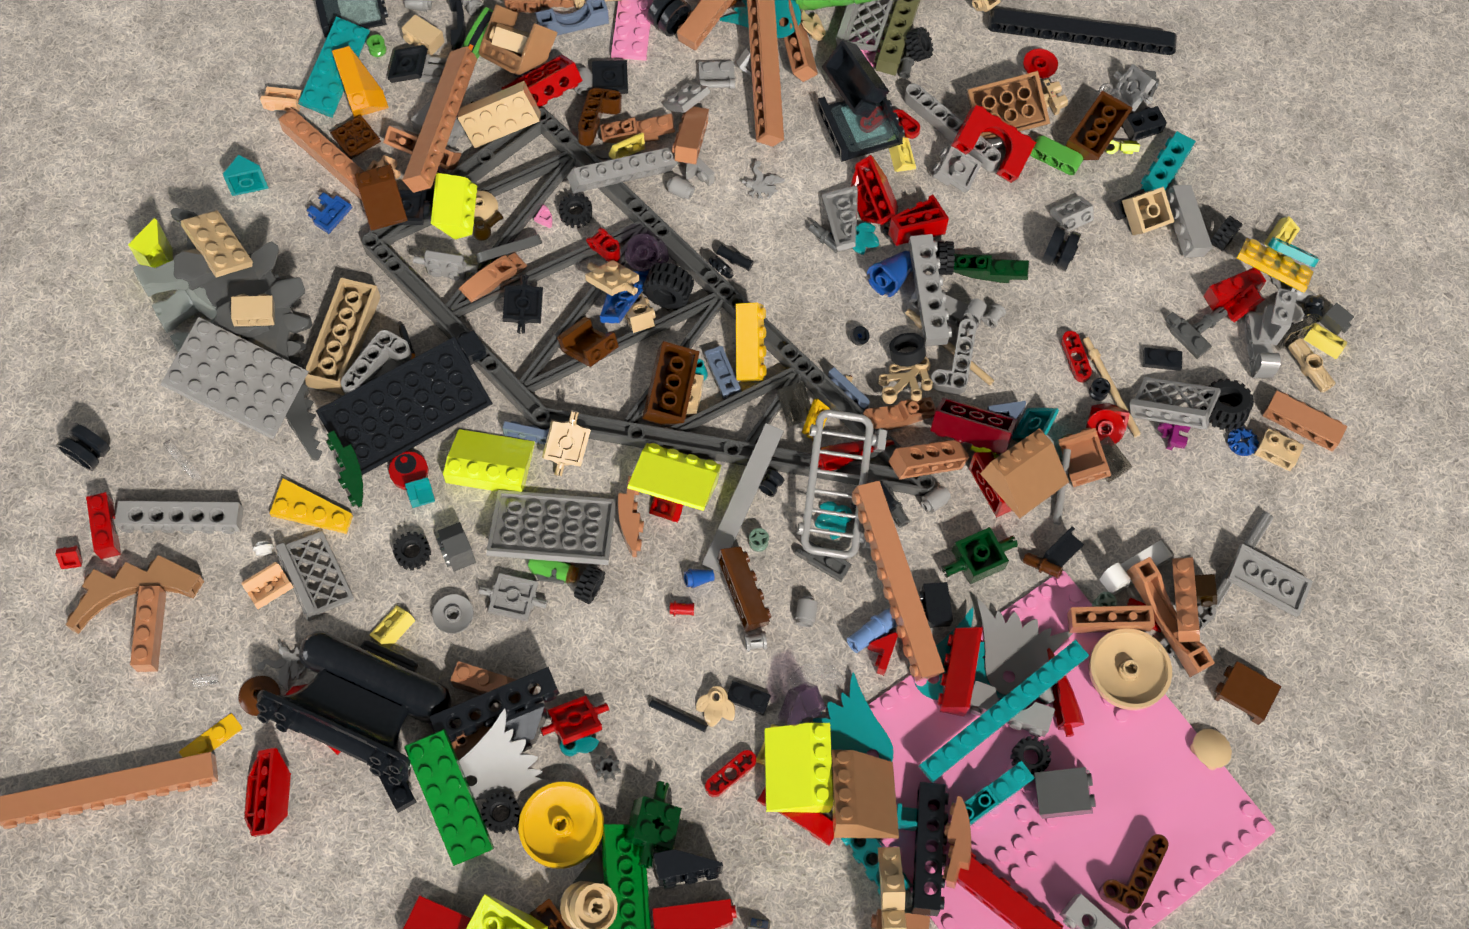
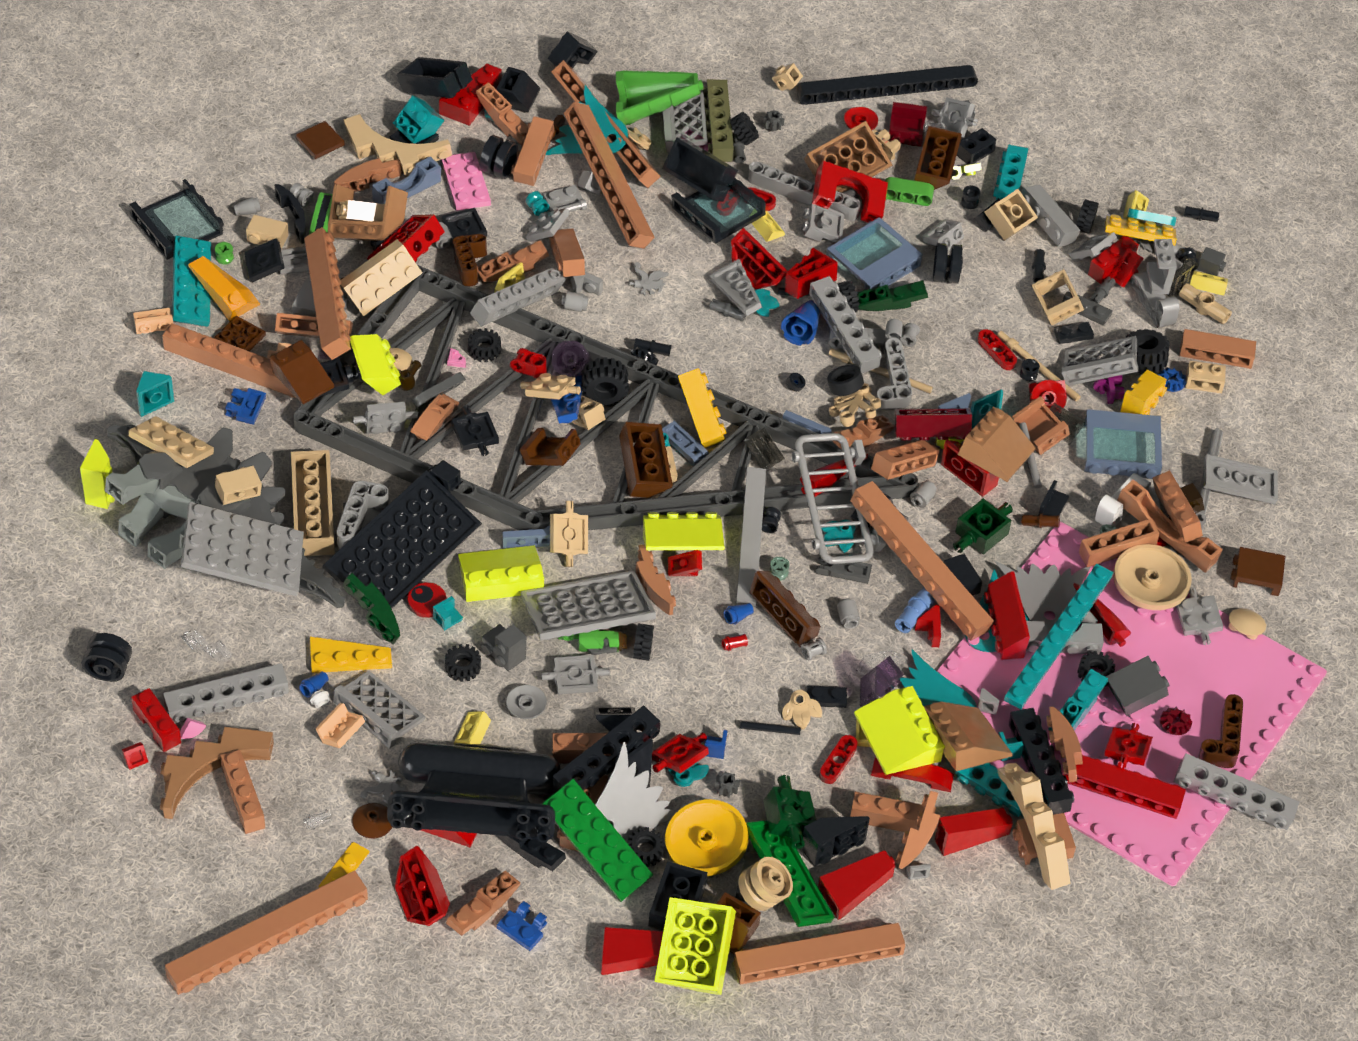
camera: 20 degrees left, 15 degrees down
(133, 543) = (191, 728): none -> bright pink tile
(263, 531) = (312, 684): none -> blue cone
(318, 827) = (485, 903): none -> nougat slope
(344, 865) = (520, 930): none -> blue plate
(506, 879) = (679, 883): none -> black brick
(528, 658) = (613, 716): none -> black slope
(615, 720) = (716, 745): none -> blue panel
(688, 71) = (537, 203): none -> teal wheel
(757, 857) = (887, 812): none -> nougat brick
(771, 895) = (915, 839): none -> nougat slope
(814, 411) = (785, 459): yellow tile -> none
(831, 902) = (971, 829): none -> red slope
(903, 760) = (987, 702): none -> light grey slope
(953, 42) = (773, 120): none -> dark grey gear
(994, 217) = (876, 254): none -> panel
(1027, 860) = (1128, 746): none -> red plate
(1085, 80) = (907, 123): none -> dark red panel
(1091, 851) = (1180, 727): none -> dark red gear
(1116, 178) = (970, 197): none -> black wheel
(1155, 274) = (1038, 265): none -> black pin
(1160, 333) = (1063, 310): none -> tan window
(1162, 502) = (1123, 443): none -> panel
(1164, 726) = (1199, 616): none -> light grey plate
(1204, 454) = (1144, 394): none -> yellow wedge
(1219, 269) = (1093, 246): none -> light grey plate
(1347, 260) = (1198, 213): none -> black axle

